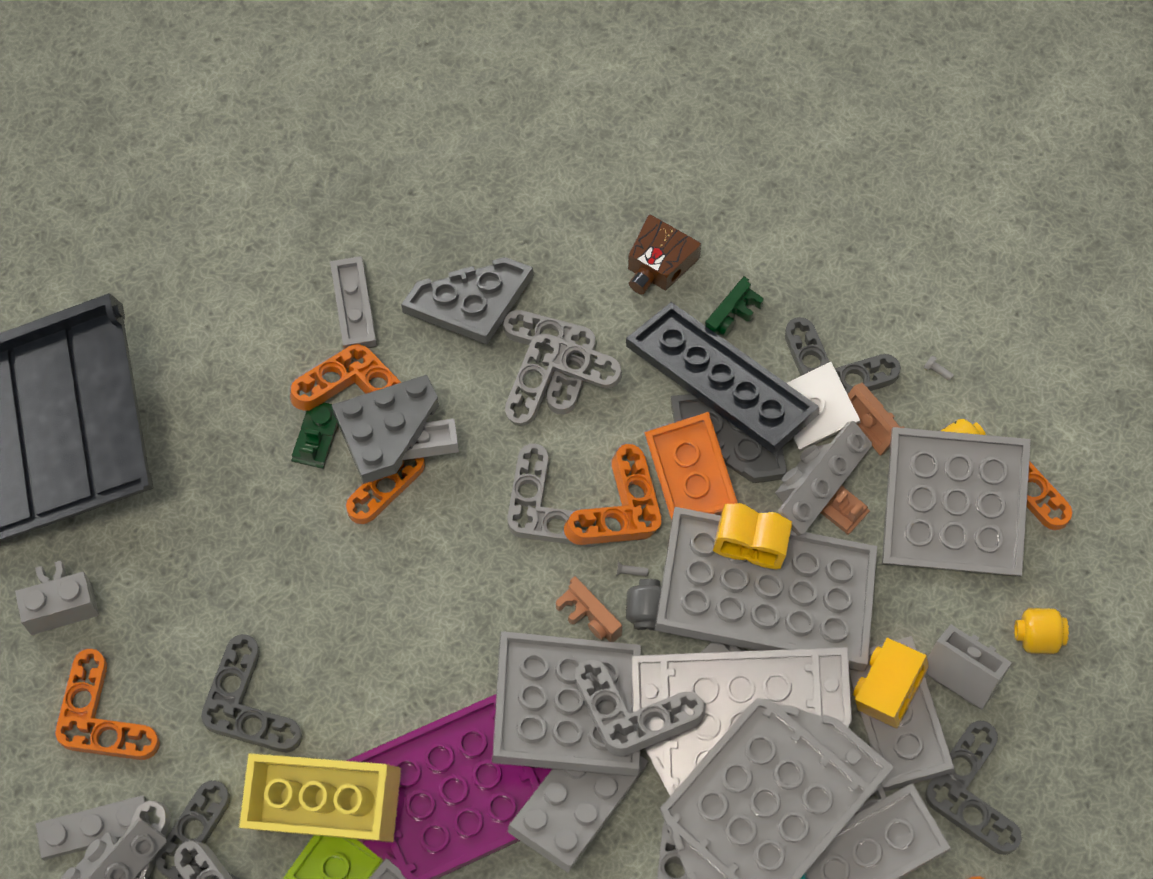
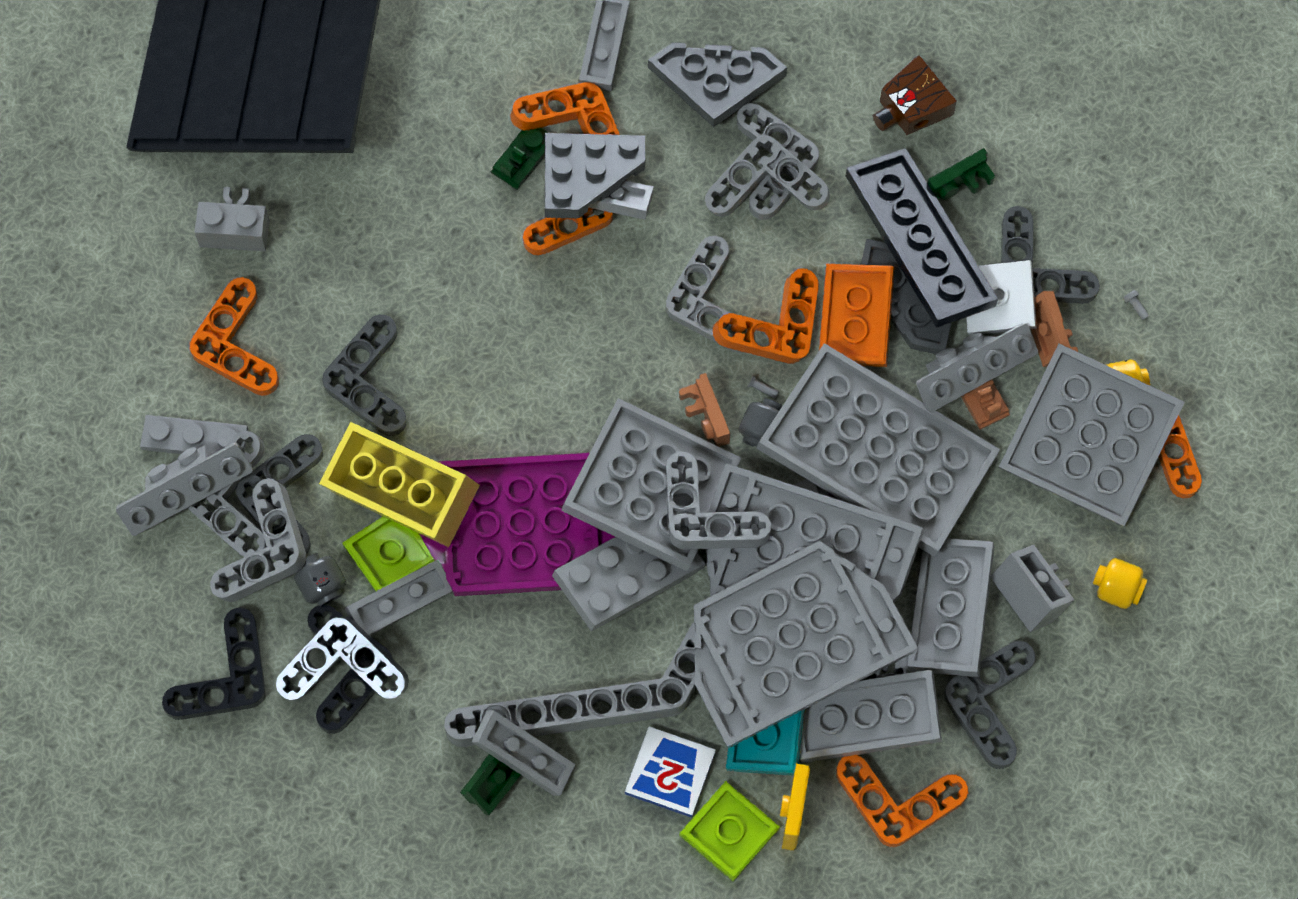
camera: 20 degrees right, 5 degrees up
(752, 536) = (882, 395): yellow brick -> none
(890, 682) = (953, 575): yellow brick -> none

